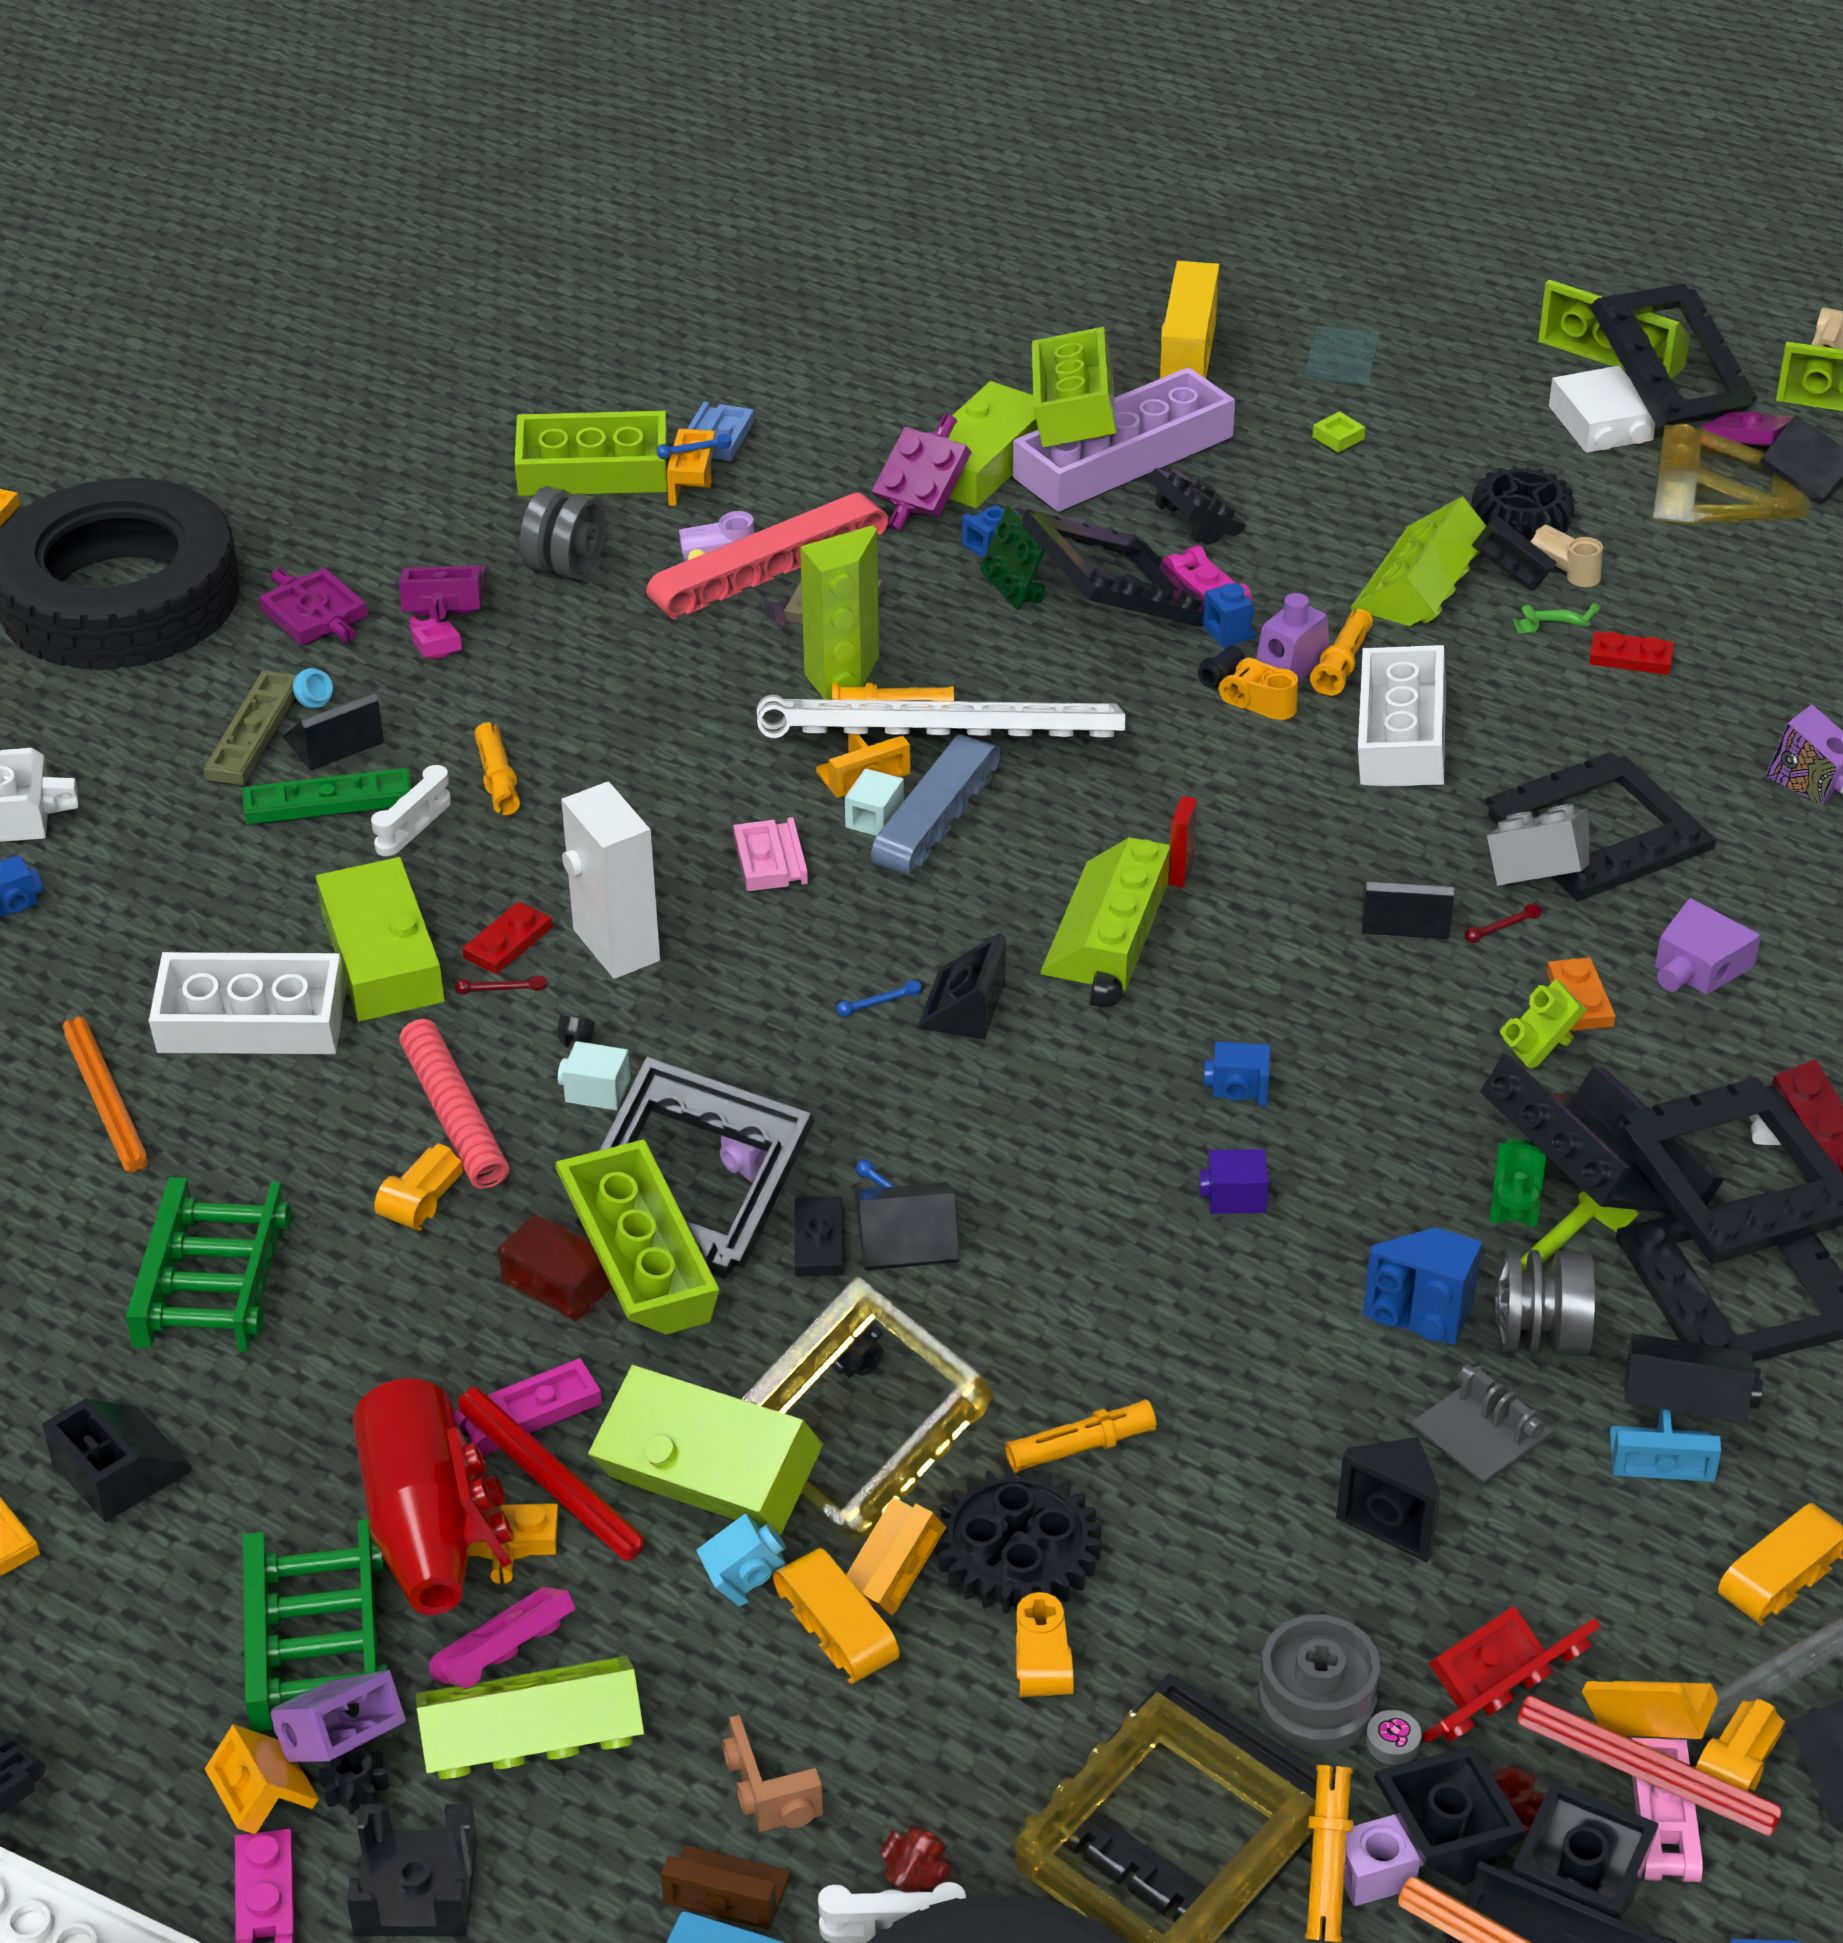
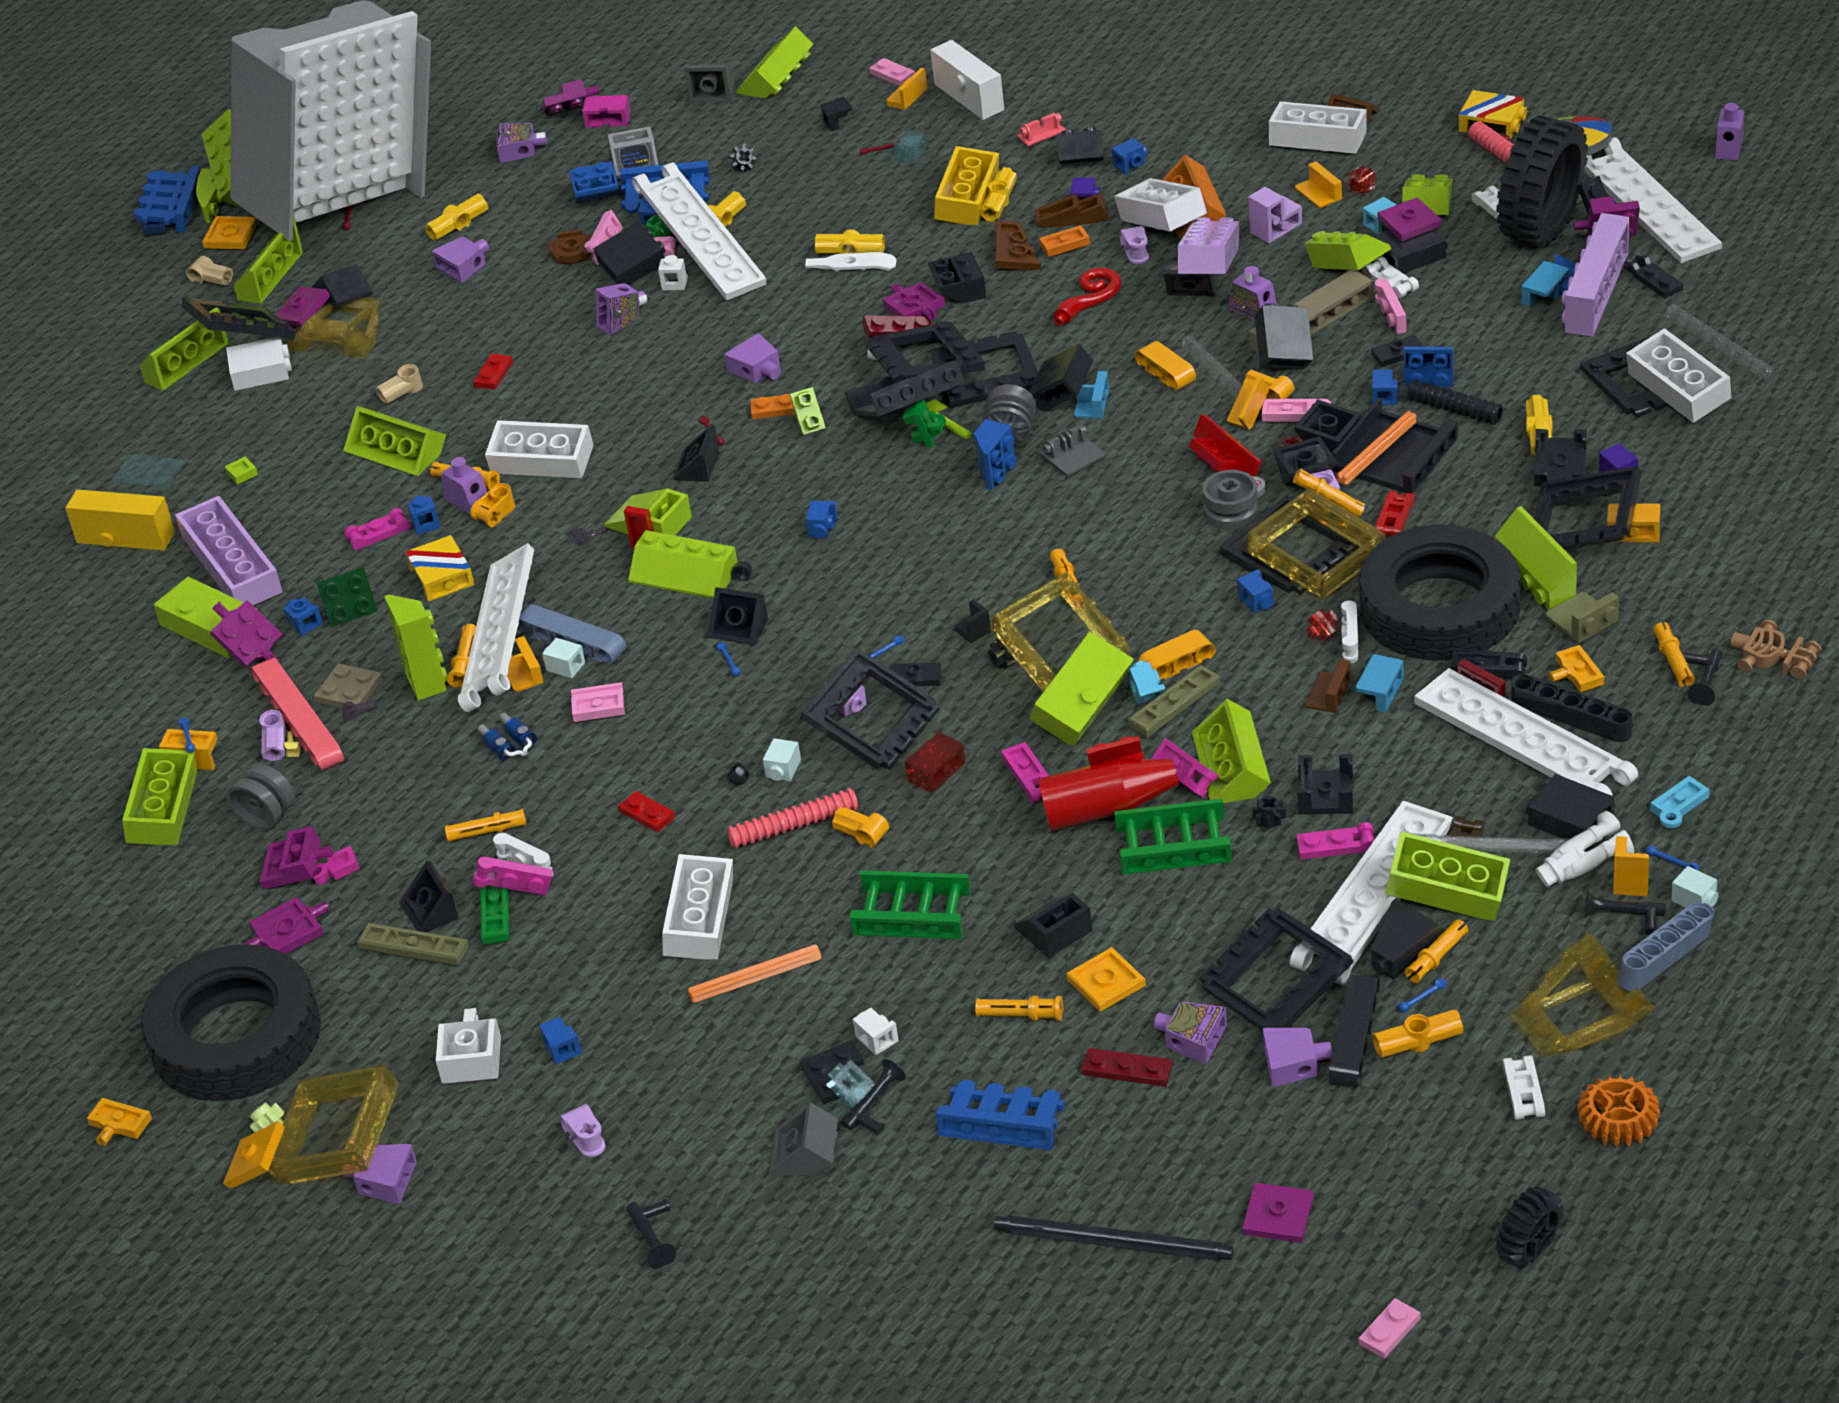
camera: 80 degrees left, 0 degrees up
(253, 1775) = (1272, 844): light orange panel -> none
(312, 688) = (380, 916): medium azure plate -> none
(318, 1727) = (1242, 811): medium lavender torso -> none
(346, 792) = (512, 875): none -> dark pink plate
(380, 939) = (641, 856): lime brick -> none
(464, 986) = (687, 798): dark red hinge -> none
(551, 1474) = (1079, 755): red axle -> none
(611, 879) = (651, 730): white brick -> none
(640, 1237) = (928, 715): lime slope -> none
(694, 774) = (500, 745): none -> clear blue piece
(708, 1618) = (1173, 701): none -> olive plate
(724, 420) = (133, 741): medium blue plate -> none
(775, 1802) = (1273, 678): nougat bracket -> none
(895, 1554) = (1145, 628): light orange panel -> none
(907, 1225) = (912, 637): black slope -> none
(944, 1304) = (976, 625): none -> black panel
(1018, 1539) = (1135, 597): black gear -> none
(1027, 1740) = (1255, 591): none -> blue brick
(1042, 1647) = (1204, 588): light orange piece -> none
(1073, 387) = (201, 550): lime brick -> none
(1096, 641) = (440, 567): none -> yellow panel
(1164, 598) = (407, 540): black hinge -> none
(1197, 502) = (314, 520): black piece -> none
(1203, 806) = (583, 538): none -> clear purple hand
(1215, 669) = (469, 525): black pin -> none
(1235, 865) = (667, 509): none -> lime slope
(1235, 1181) = (901, 522): dark purple brick -> none
(1391, 1495) = (1129, 466): black slope -> none
(1514, 553) = (402, 399): black plate -> none
(1524, 500) = (341, 396): black gear -> none
(1533, 618) = (453, 405): bright green piece -> none
(1540, 846) = (668, 402): light grey slope -> none
(1627, 860) = (611, 411): black hinge -> none
(1650, 1765) = (1280, 406): axle -> none

